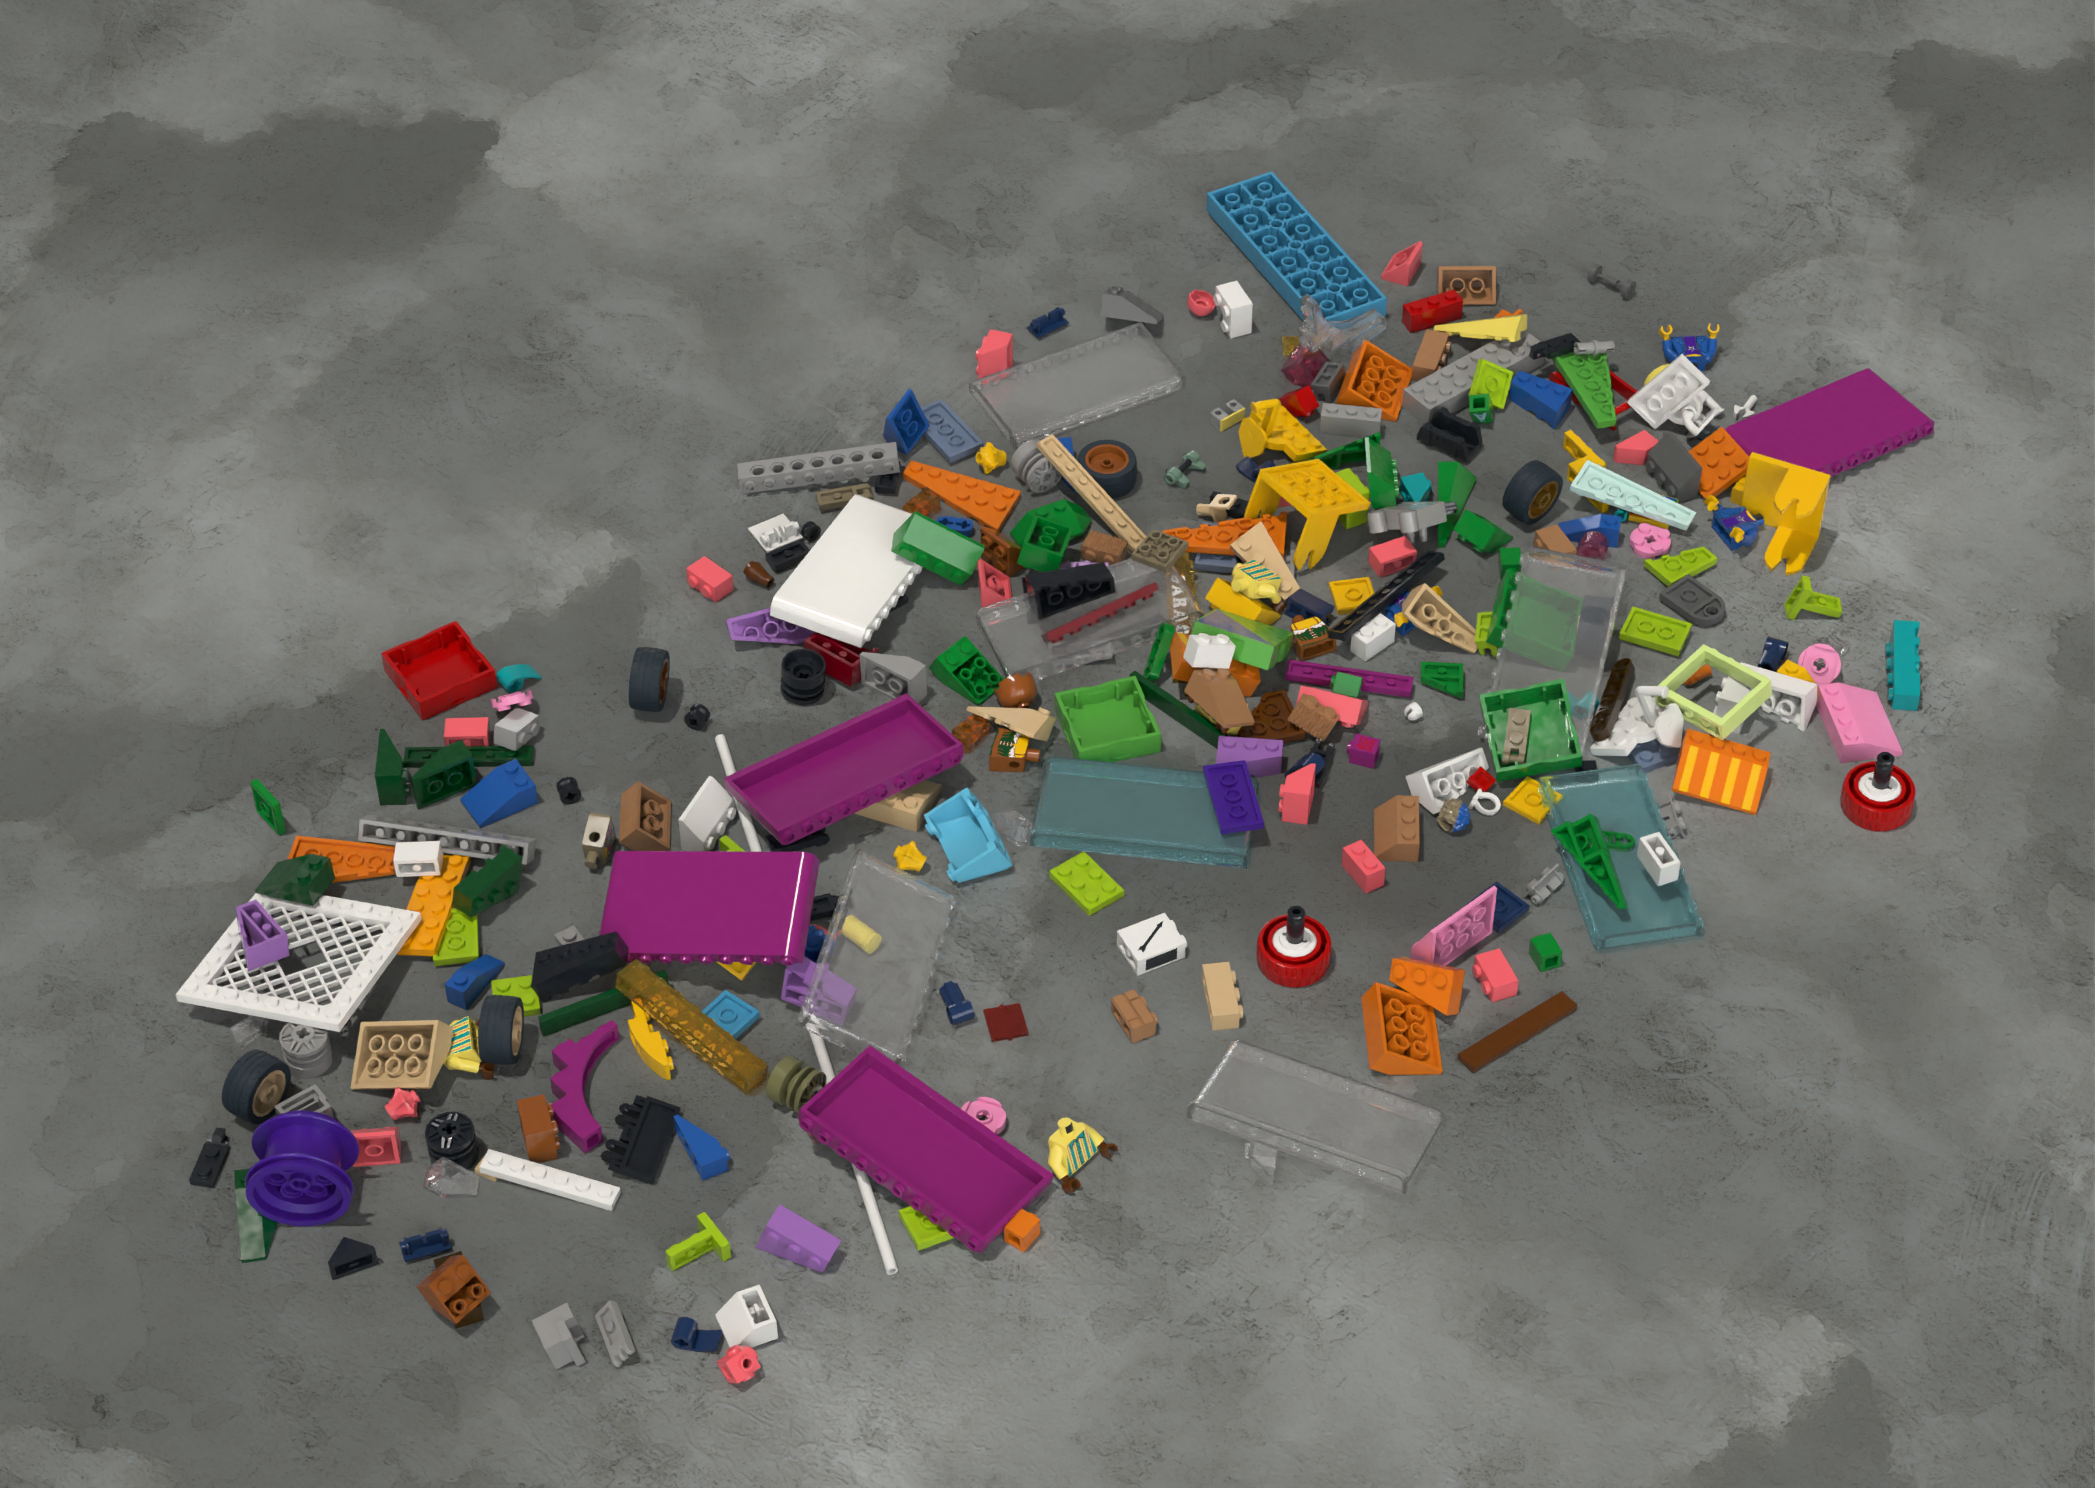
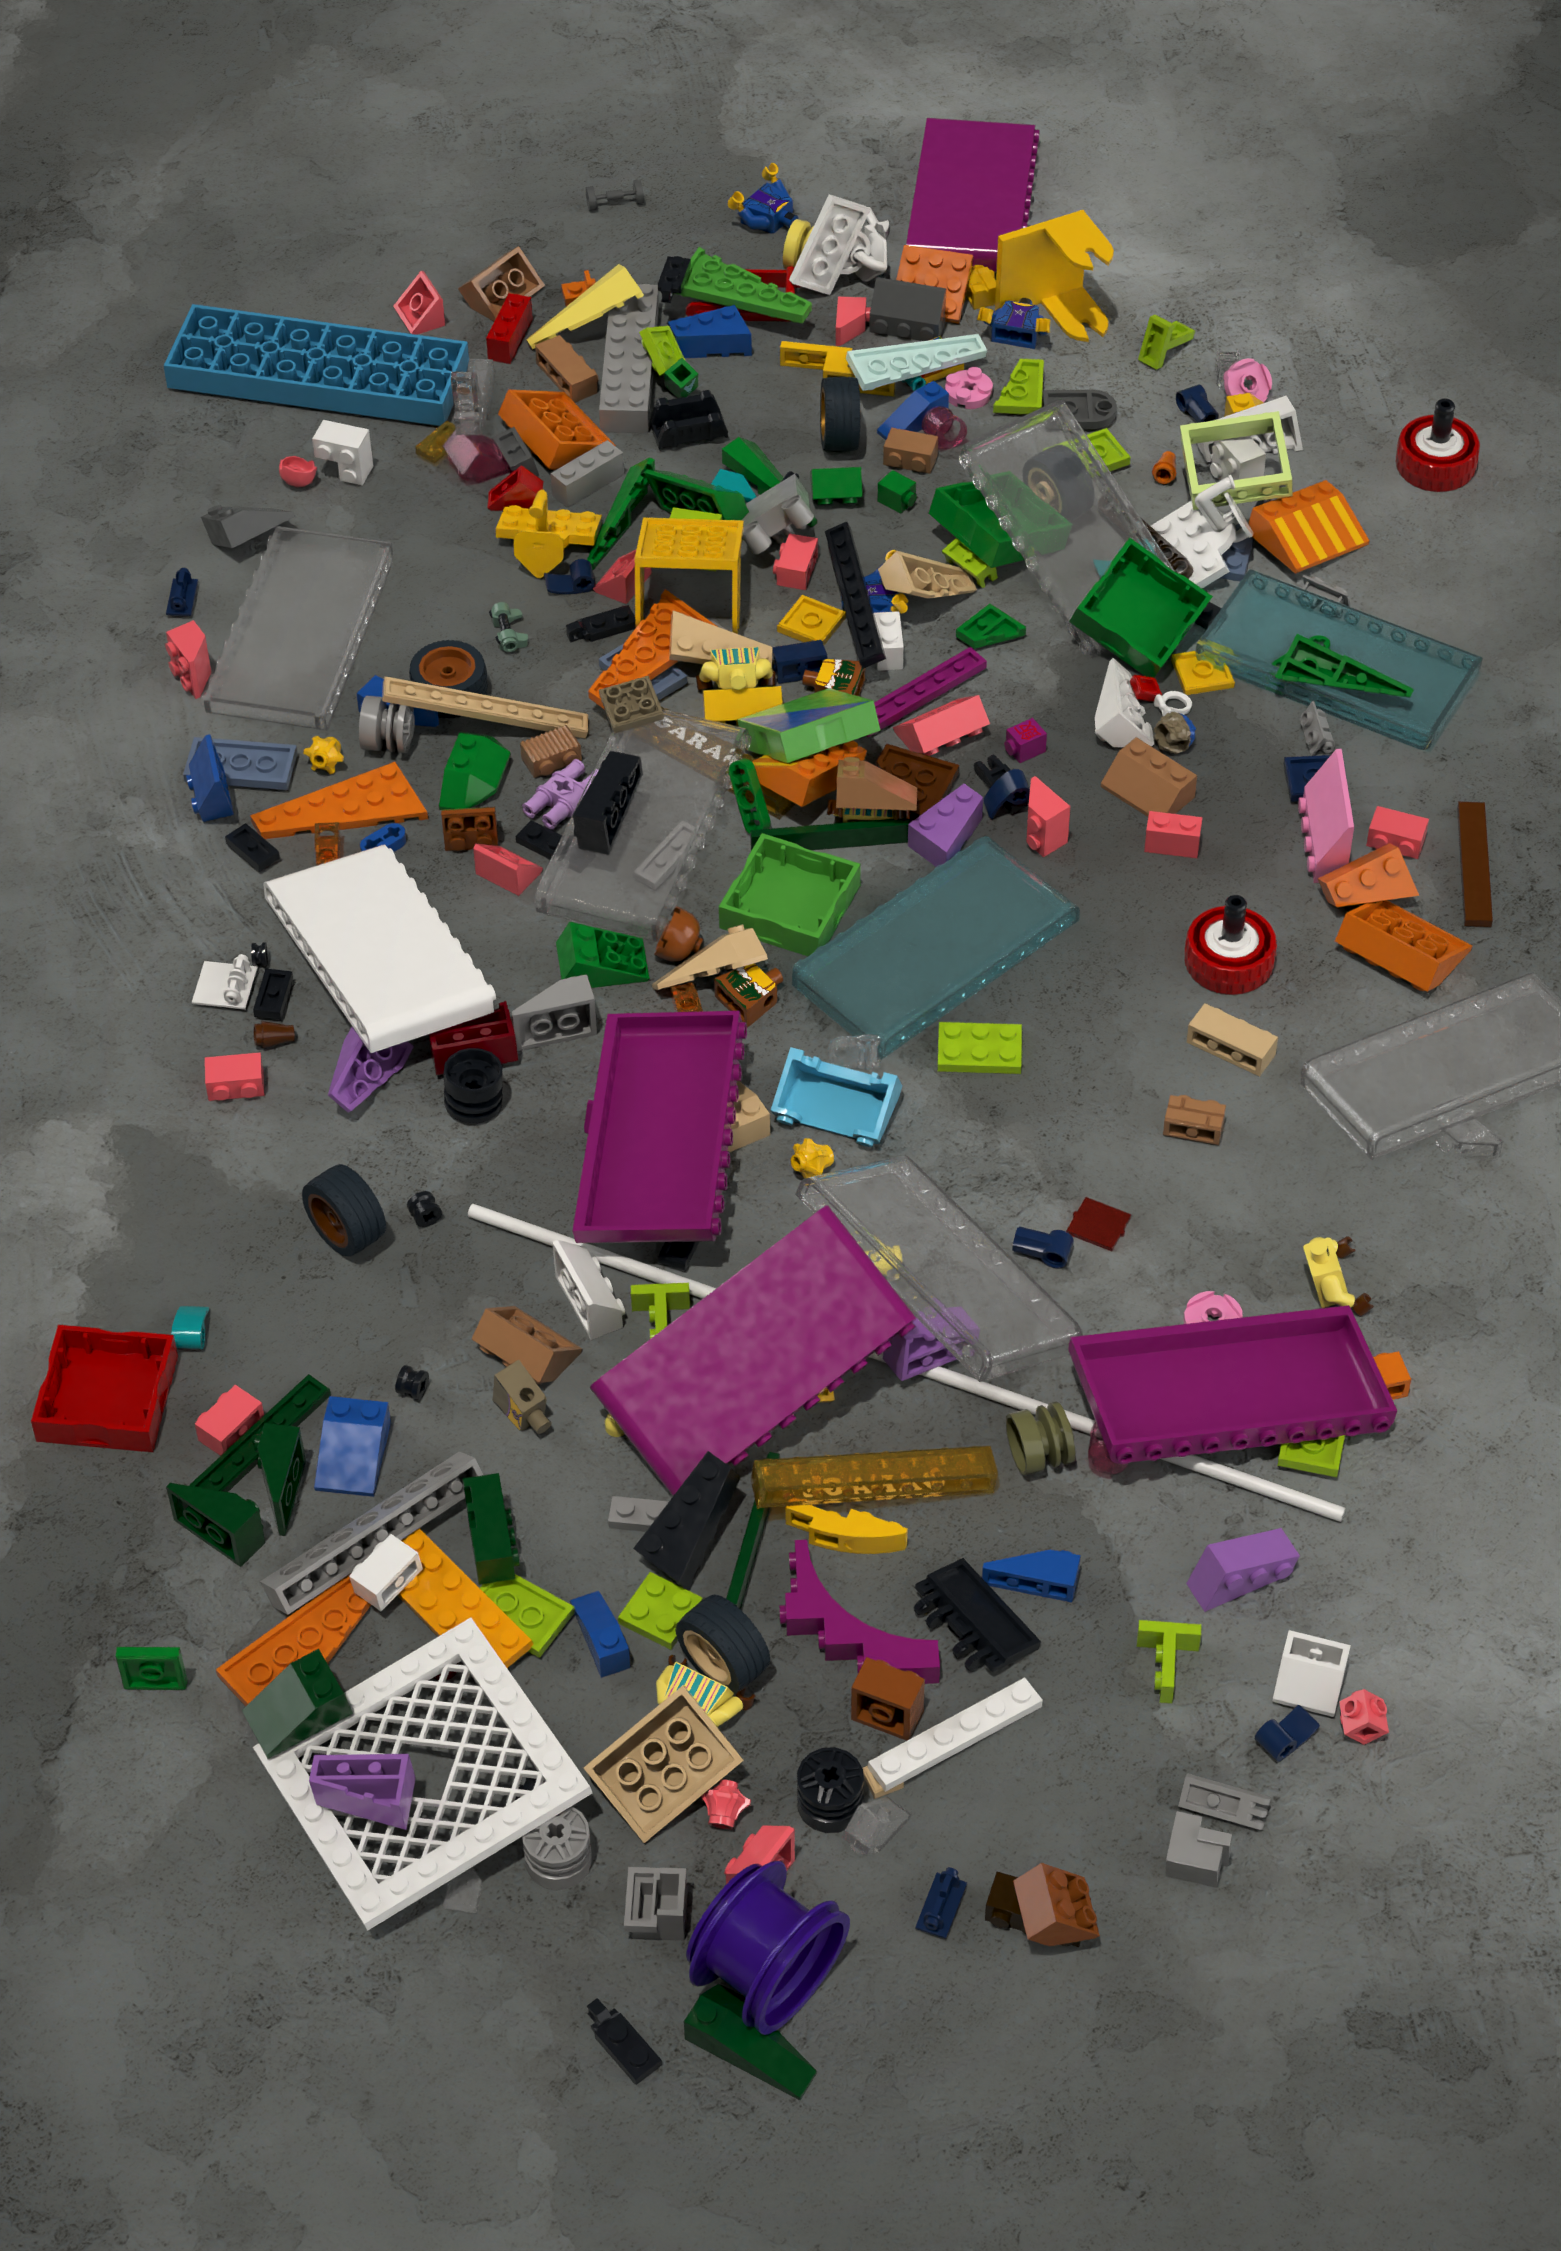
camera: 50 degrees left, 5 degrees up
(256, 1086) = (583, 1925): black wheel -> none
(351, 1257) = (898, 1983): black slope -> none
(513, 698) = (228, 1351): bright pink plate -> none
(516, 729) = (277, 1371): light grey brick -> none
(731, 1013) = (874, 1433): dark azure plate -> none
(818, 468) = (181, 890): light grey brick -> none
(841, 496) = (239, 899): dark tan plate -> none
(937, 548) = (430, 864): slope -> none
(1045, 545) = (516, 784): green brick -> none
(1093, 617) = (665, 800): dark red plate -> none
(1151, 944) = (1114, 1048): white brick -> none
(1209, 651) = (827, 749): white brick -> none
(1216, 507) = (594, 640): tan bracket -> none
(1228, 418) = (471, 552): piece -> none
(1233, 797) = (1003, 864): dark purple plate -> none
(1313, 717) = (953, 744): medium nougat brick -> none
(1346, 684) = (935, 695): green brick -> none
(1413, 711) = (1009, 670): white hinge -> none
(1516, 736) = (1133, 623): dark tan plate -> none
(1545, 952) = (1401, 781): green brick -> none
(1594, 347) = (705, 255): light grey pin -> none
(1658, 858) = (1391, 628): white brick -> none
(1855, 722) = (1336, 412): bright pink slope -> none
(1903, 665) = (1304, 336): teal wedge -> none

